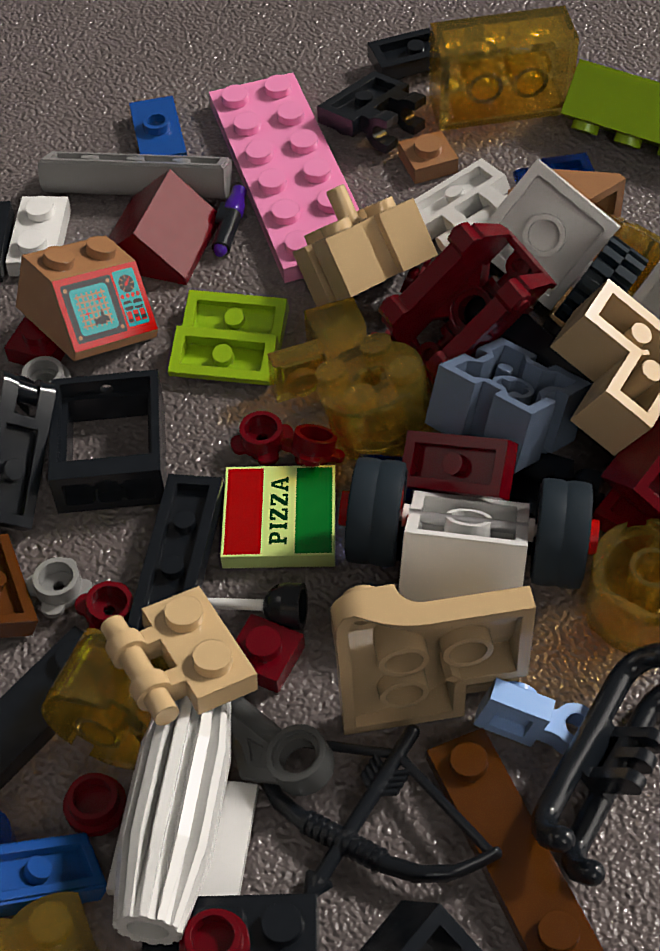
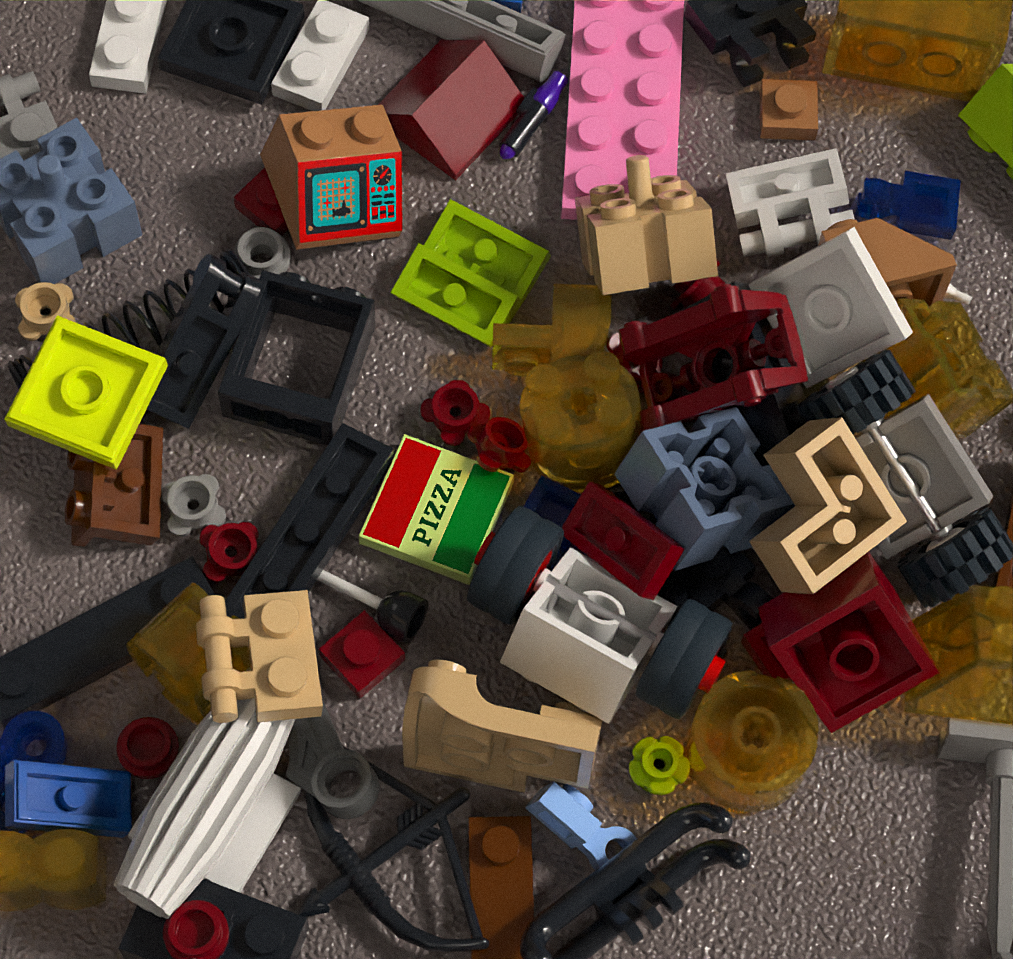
camera: 15 degrees right, 15 degrees up
(570, 657) = (659, 780): none -> lime plate

